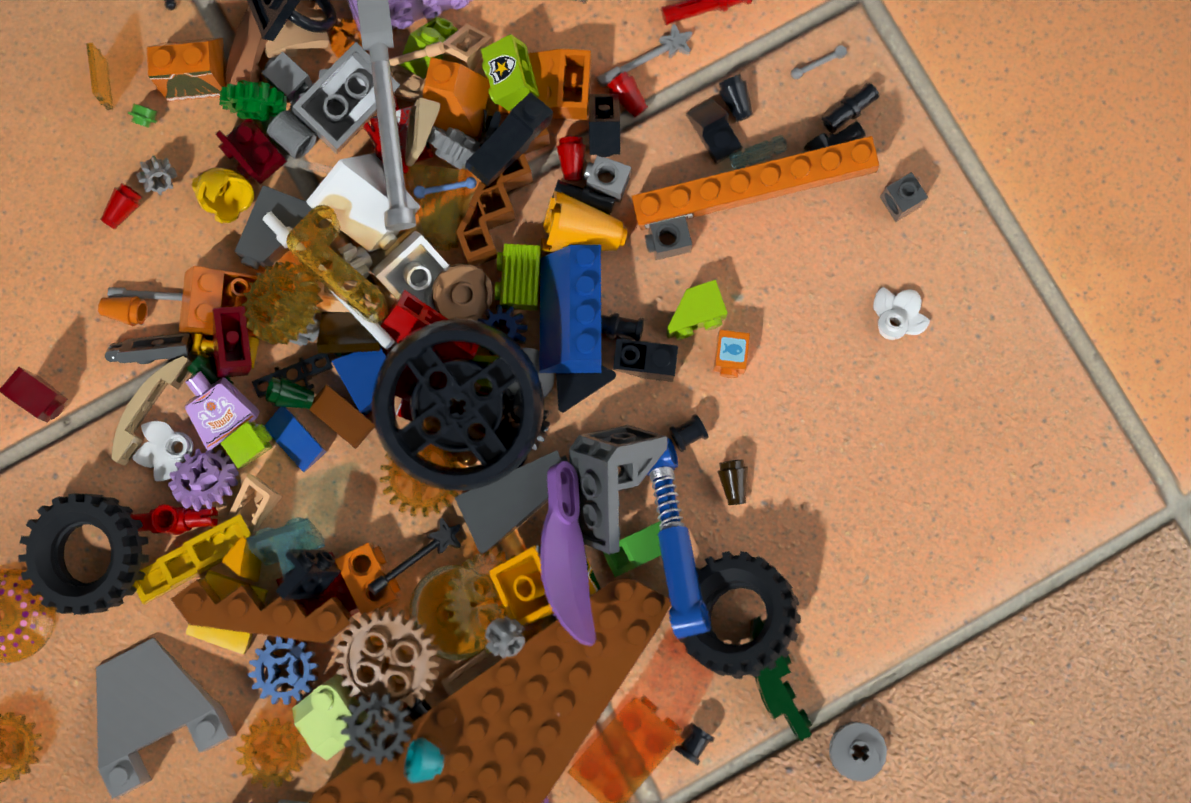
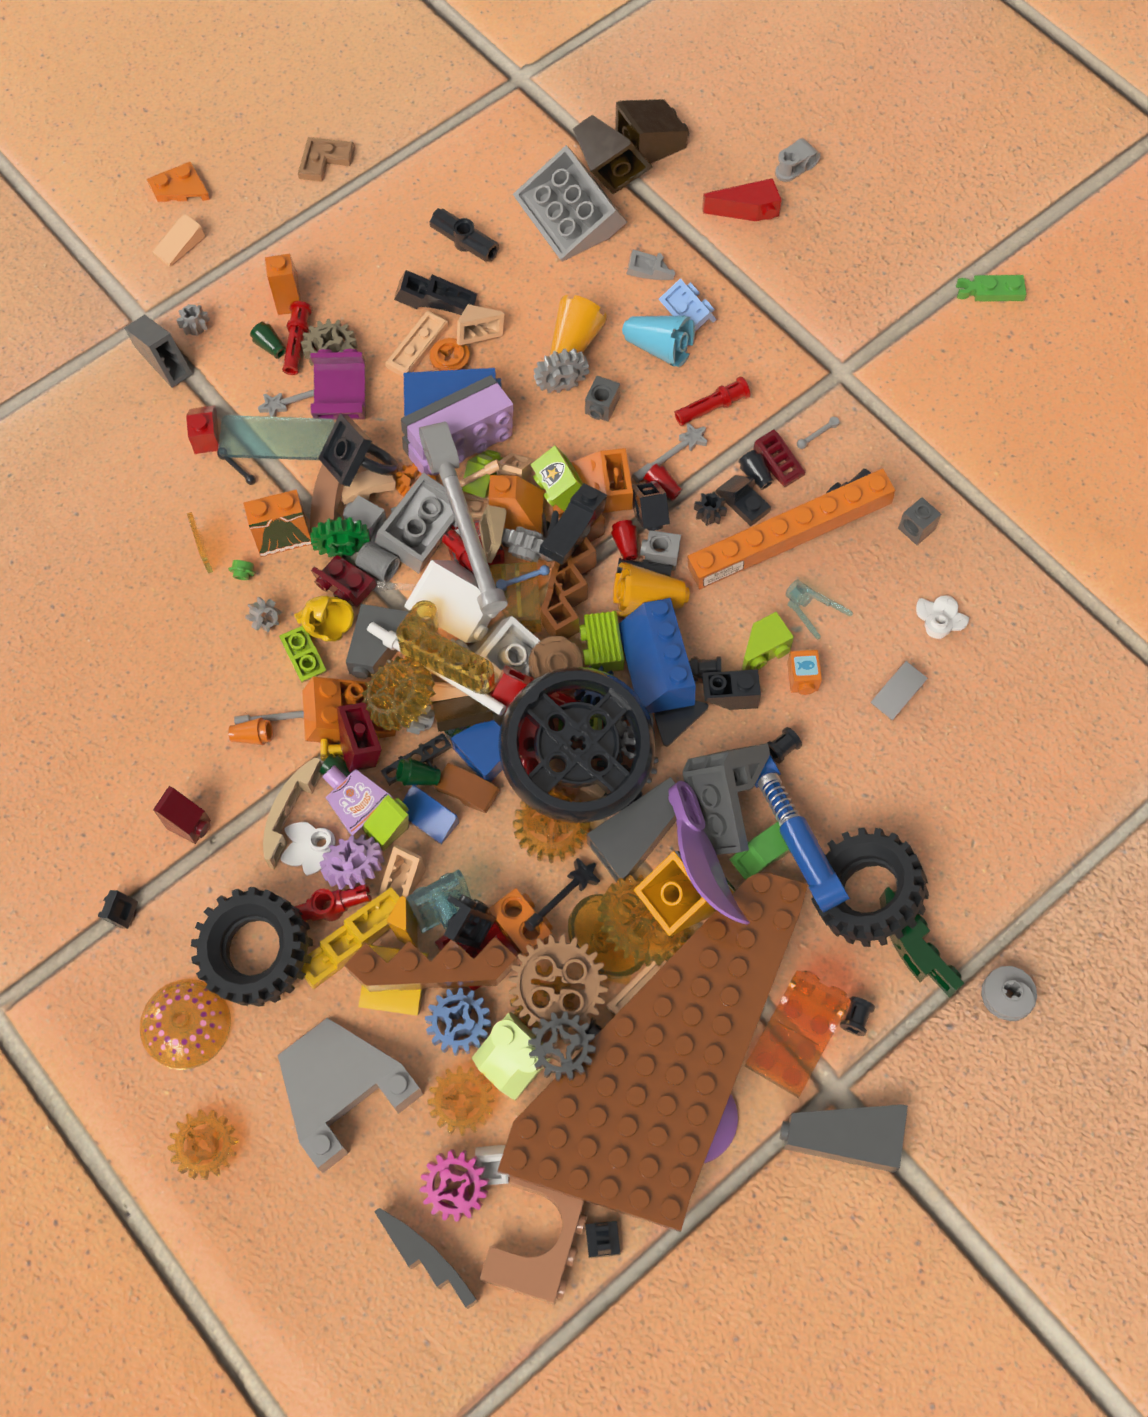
camera: 10 degrees left, 15 degrees down
(120, 205) = (234, 645): red cone -> none
(152, 348) = (278, 762): dark grey hinge -> none
(193, 228) = (302, 654): none -> lime slope
(422, 761) = (612, 1065): teal cone -> none
(505, 637) = (663, 941): light grey gear -> none
(675, 227) = (728, 579): dark grey brick -> none
(677, 130) = (710, 508): none -> black gear
(734, 481) = (834, 778): dark brown cone -> none
(752, 260) = (802, 595): none -> clear light blue plant
(756, 64) = (772, 443): none -> dark red slope
(758, 152) = (799, 499): clear light blue axle -> none
(829, 393) = (899, 690): none -> light grey slope
(850, 107) = (854, 461): black pin -> none

